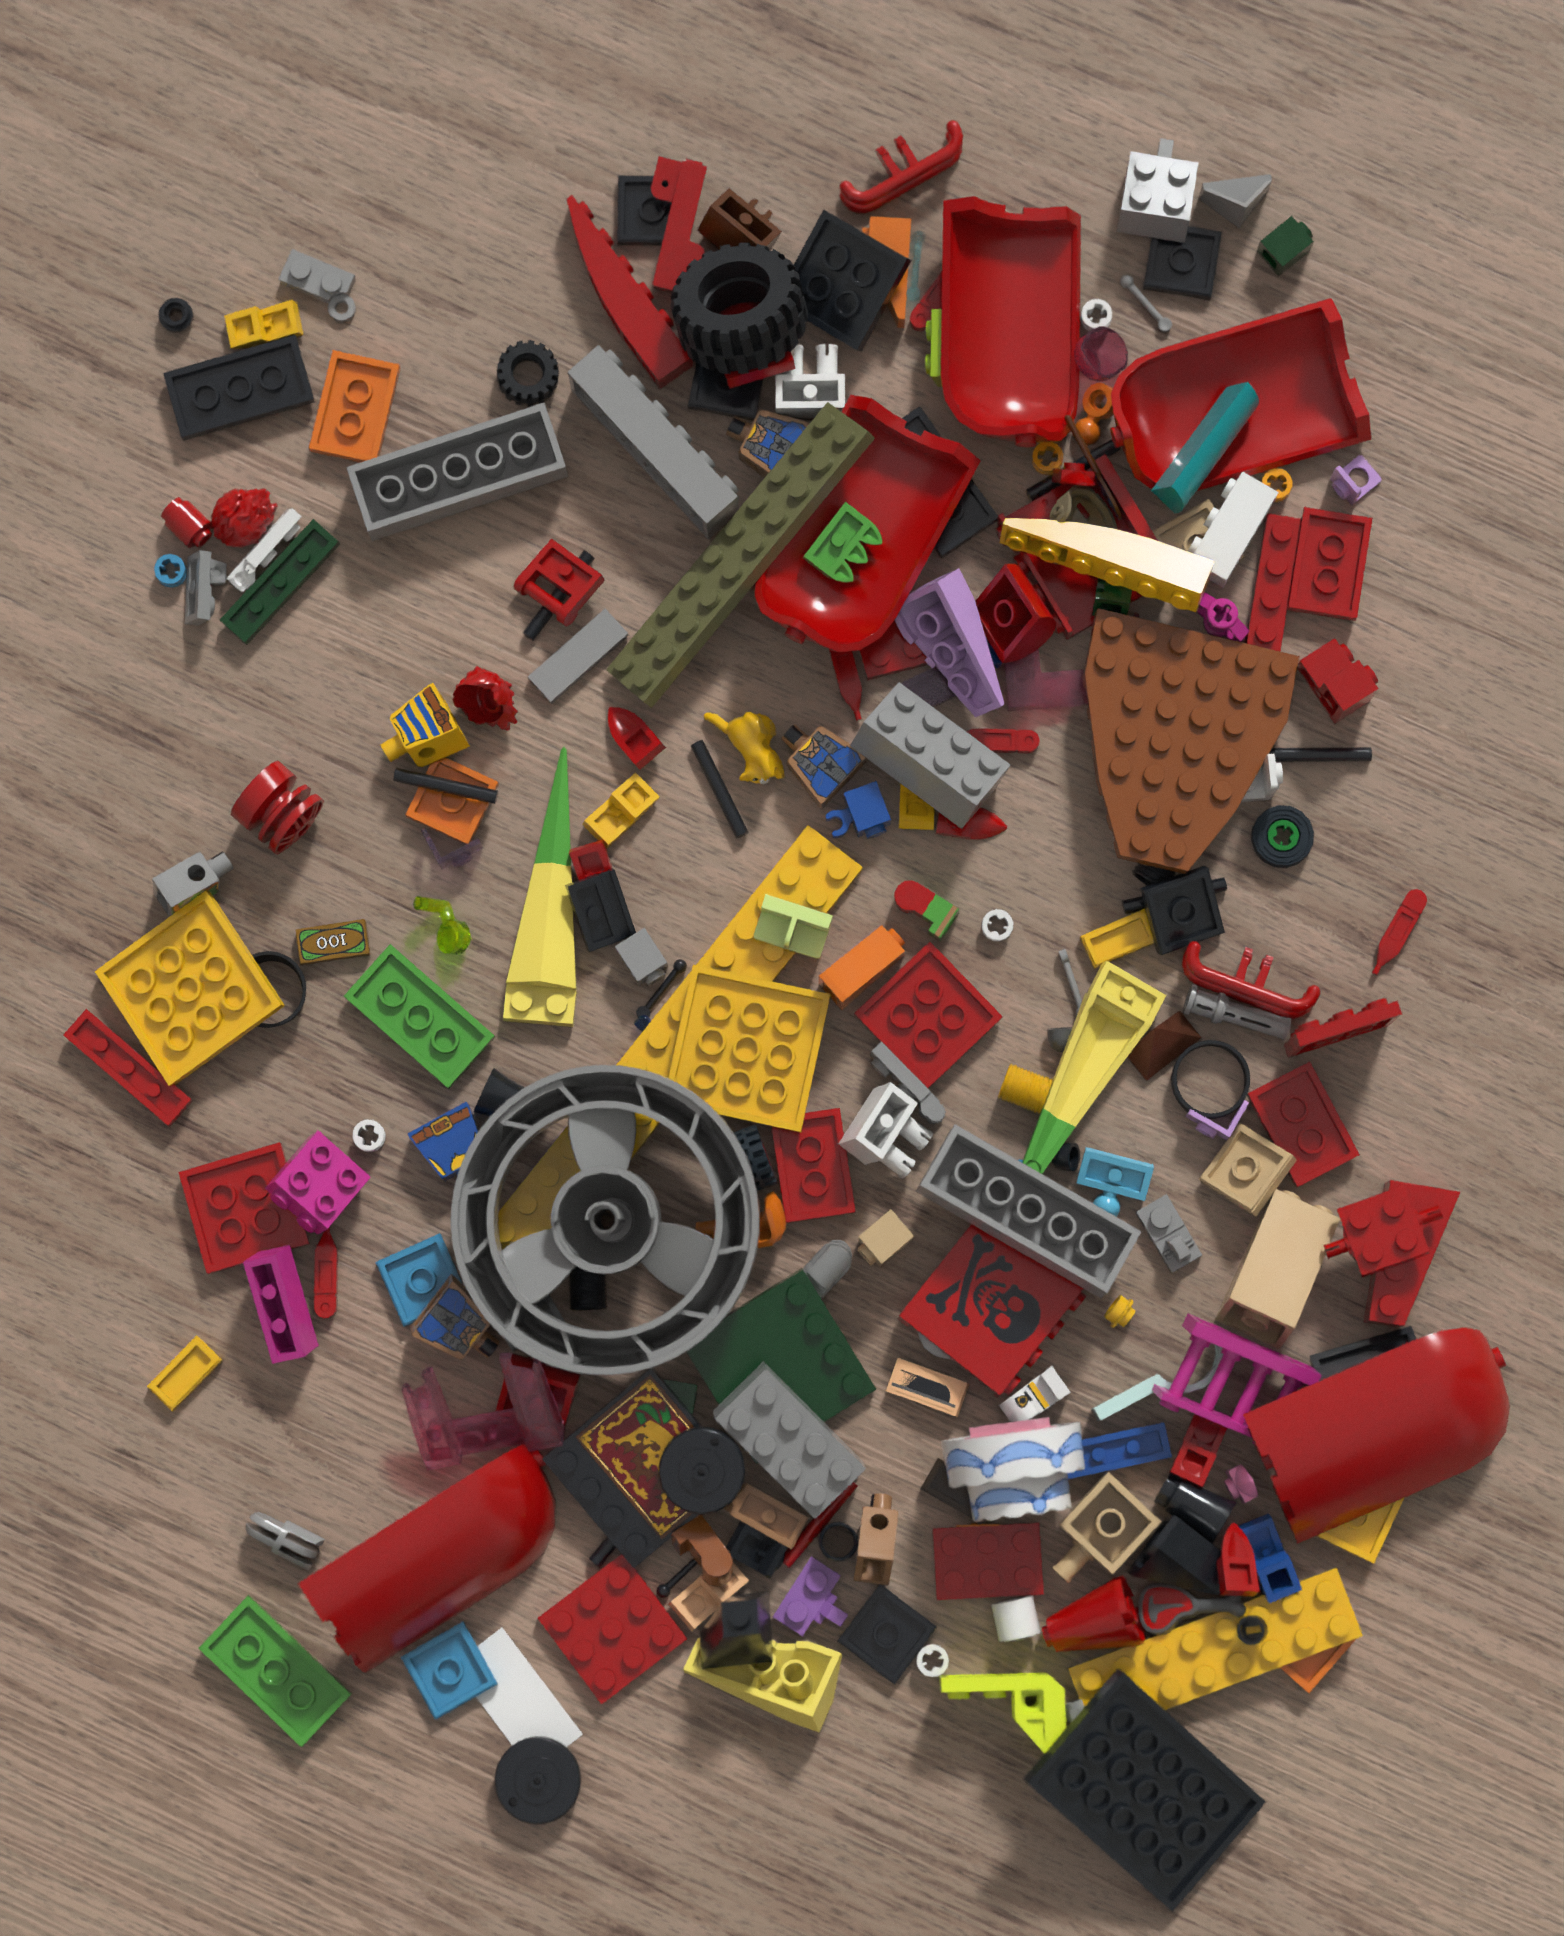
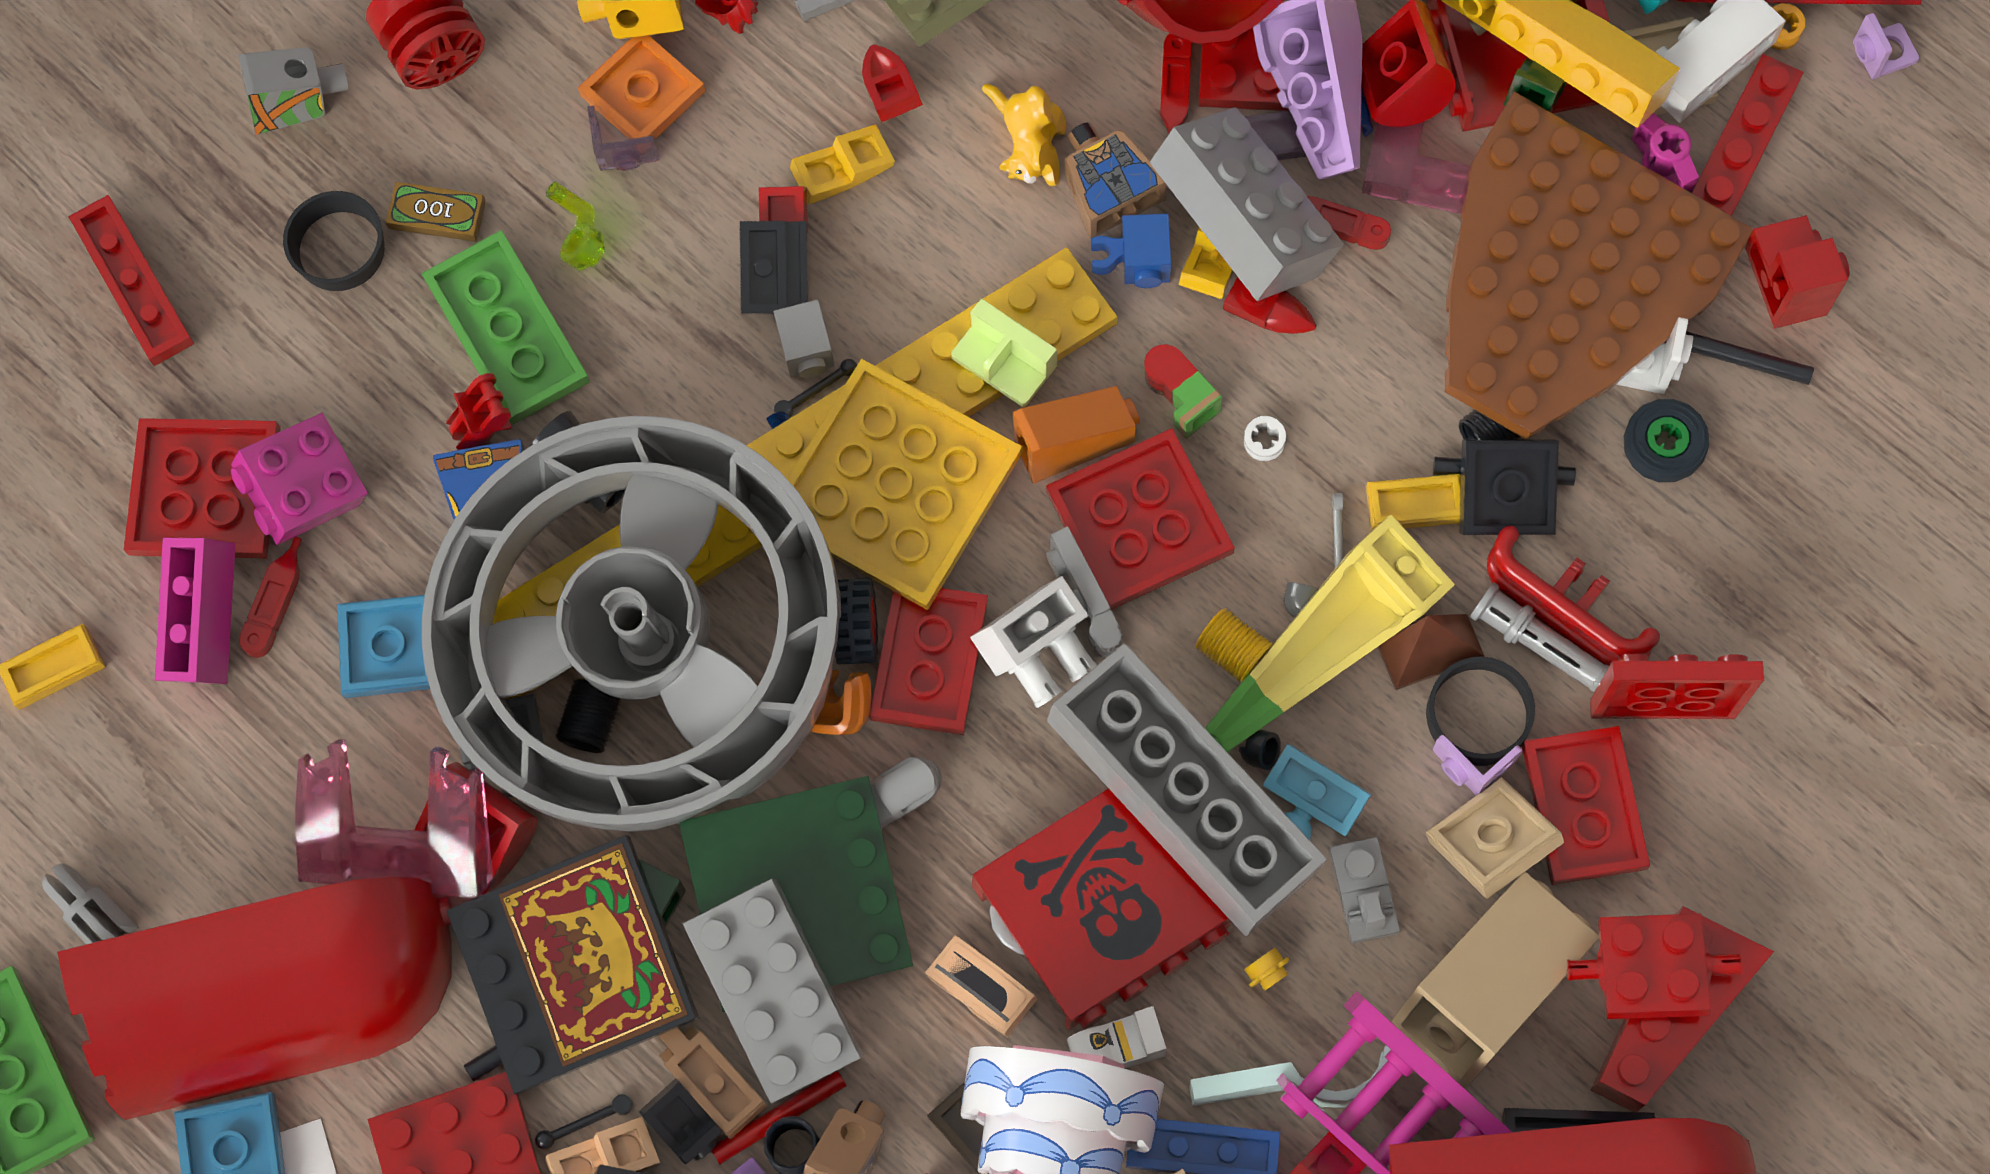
camera: 20 degrees right, 10 degrees down
(189, 988) = (239, 206): yellow plate -> none
(359, 1141) = (385, 436): white bush -> none
(429, 1092) = (478, 413): none -> red arm
(445, 785) = (638, 66): black bar -> none
(454, 1323) = (400, 706): torso -> none
(543, 961) = (682, 309): light yellow plate -> none
(701, 1470) = (642, 987): black wheel -> none
(706, 1550) = (618, 1102): dark orange leg -> none
(719, 789) = (972, 176): black piece -> none
(884, 1239) = (987, 773): tan brick -> none
(1329, 564) = (1824, 134): red plate -> none
(1400, 928) = (1787, 599): red piece -> none

